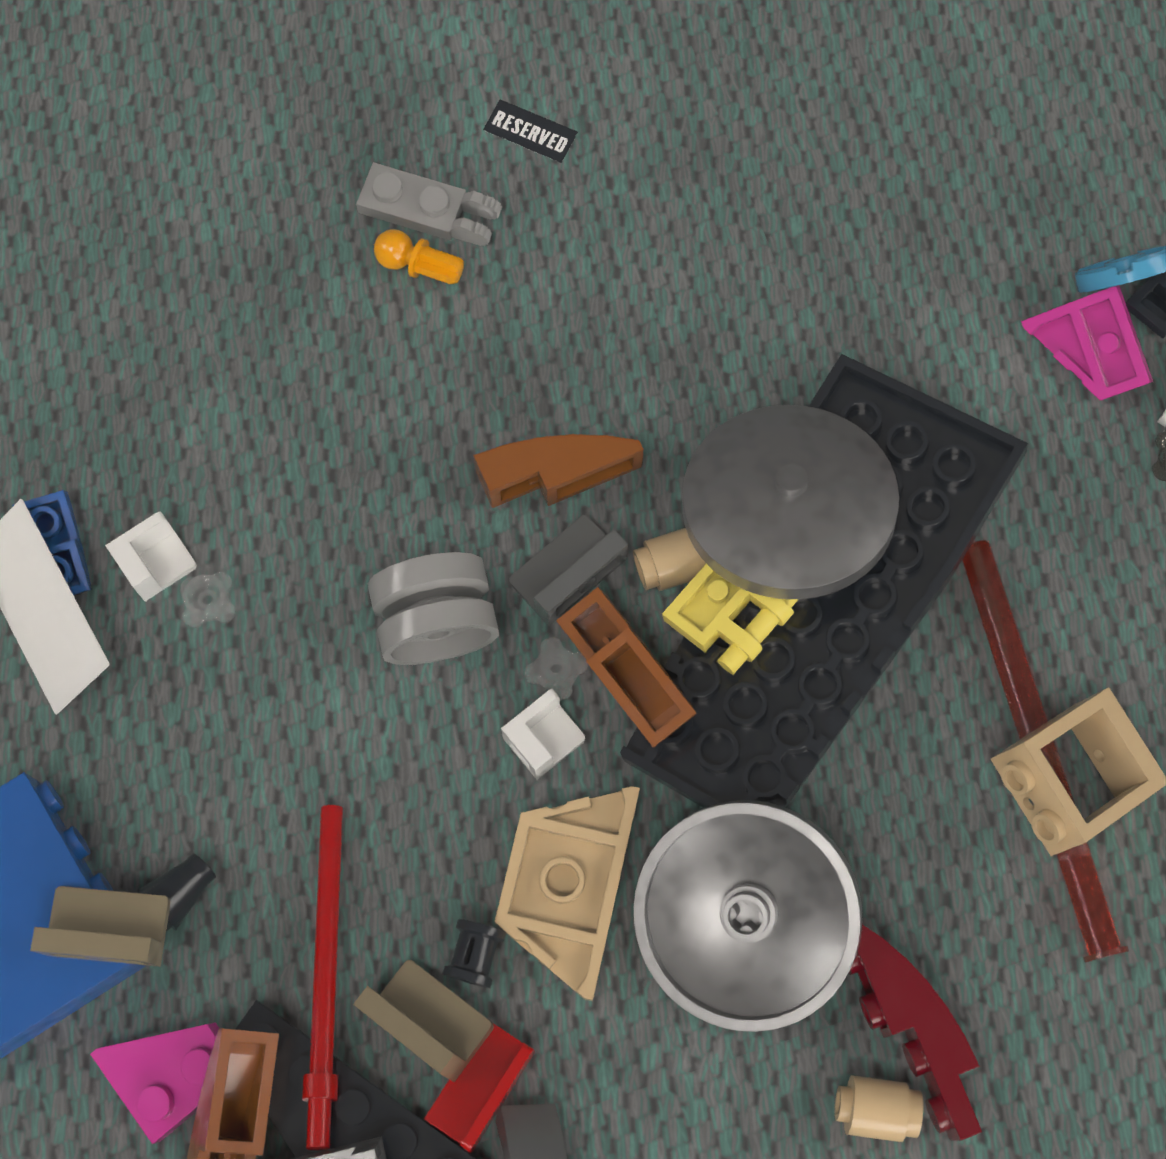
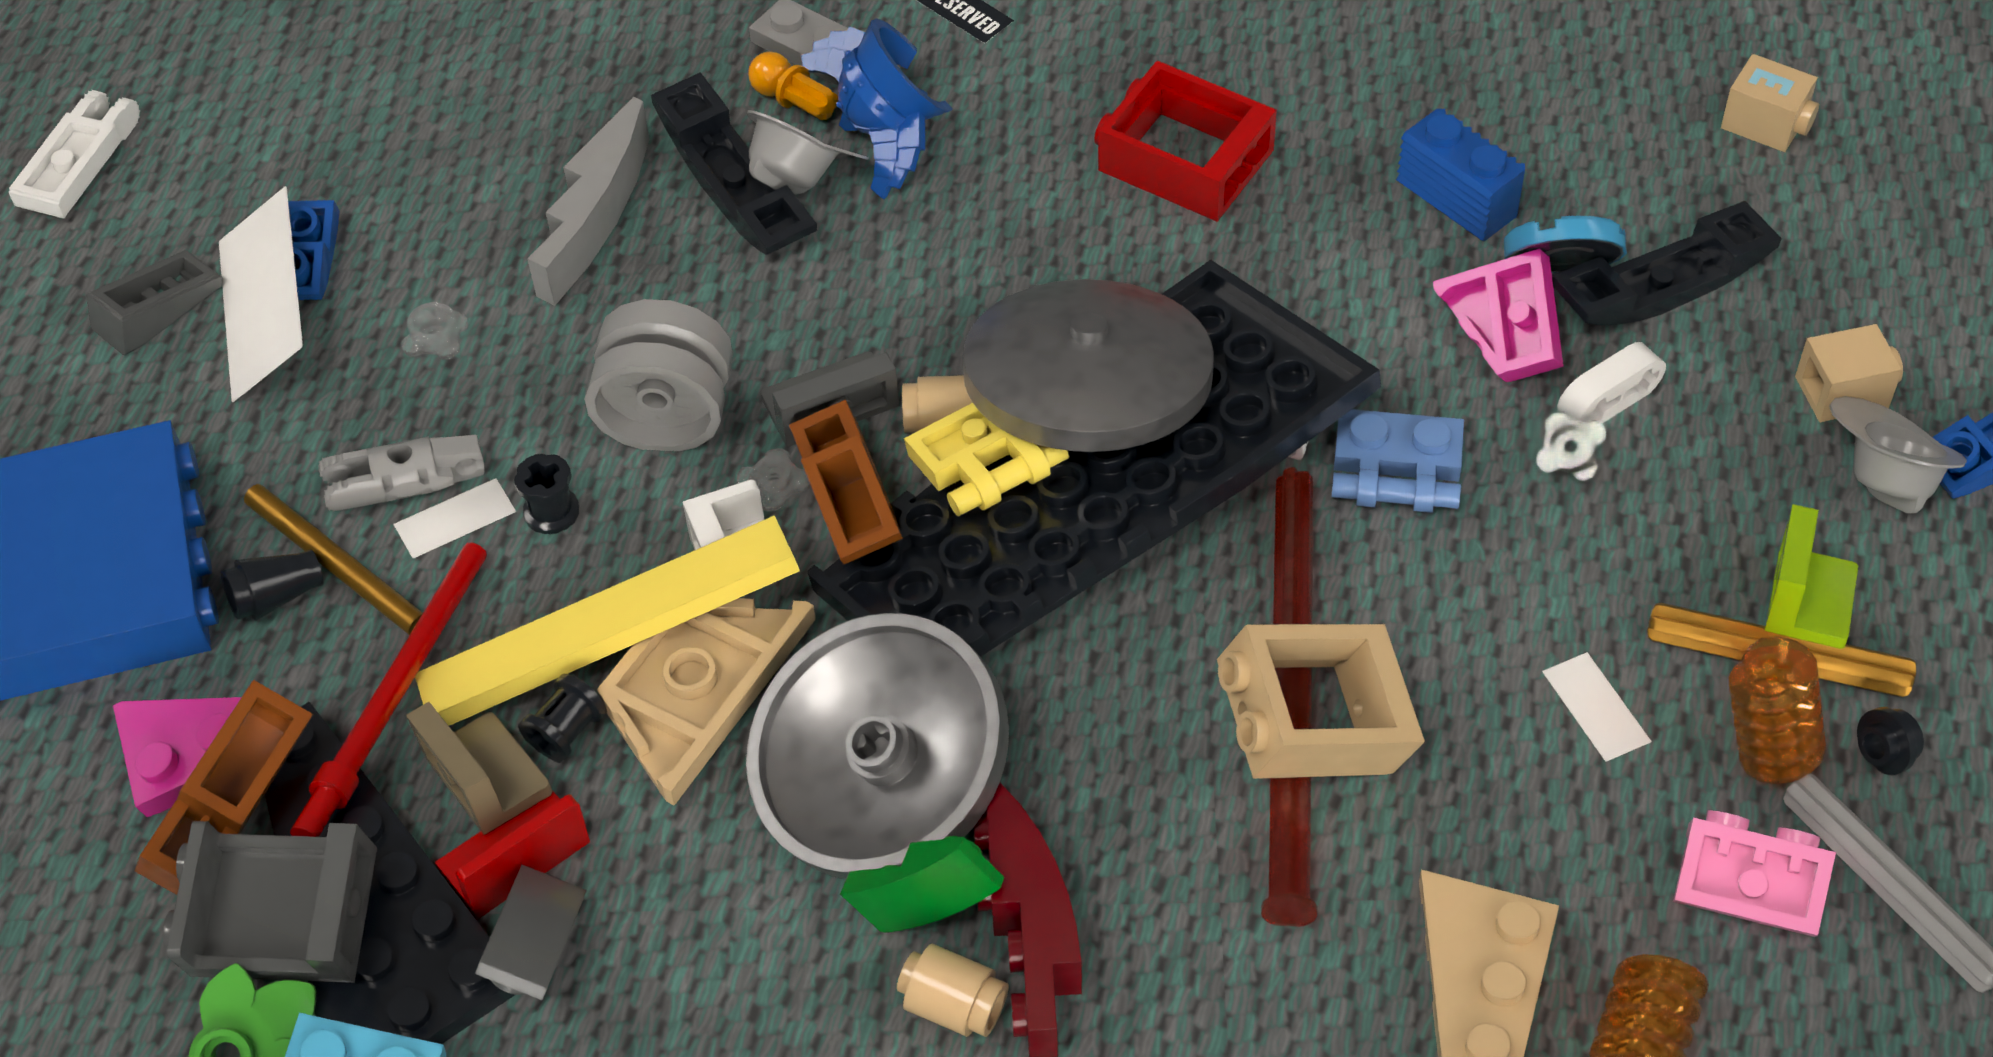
camera: 20 degrees right, 20 degrees down
(105, 926) = (177, 571): dark tan panel -> none
(151, 556) = (394, 275): white panel -> none
(215, 850) = (333, 557): none -> pearl gold bar
(265, 739) = (399, 470): none -> light grey hinge
(292, 413) = (597, 193): none -> light grey slope
(298, 776) = (454, 518): none -> white sticker
(373, 725) = (545, 487): none -> black bush
(399, 363) = (720, 163): none -> black slope
(456, 337) = (787, 155): none -> light grey piece
(478, 858) = (607, 622): none -> light yellow tile
(502, 258) = (878, 96): none -> blue helmet
(555, 465) = (855, 294): dark orange slope -> none
(781, 194) = (1167, 91): none -> red window
(835, 1034) = (929, 885): none -> green slope
(1013, 209) = (1461, 174): none -> blue brick
(1049, 489) = (1398, 446): none -> medium blue plate

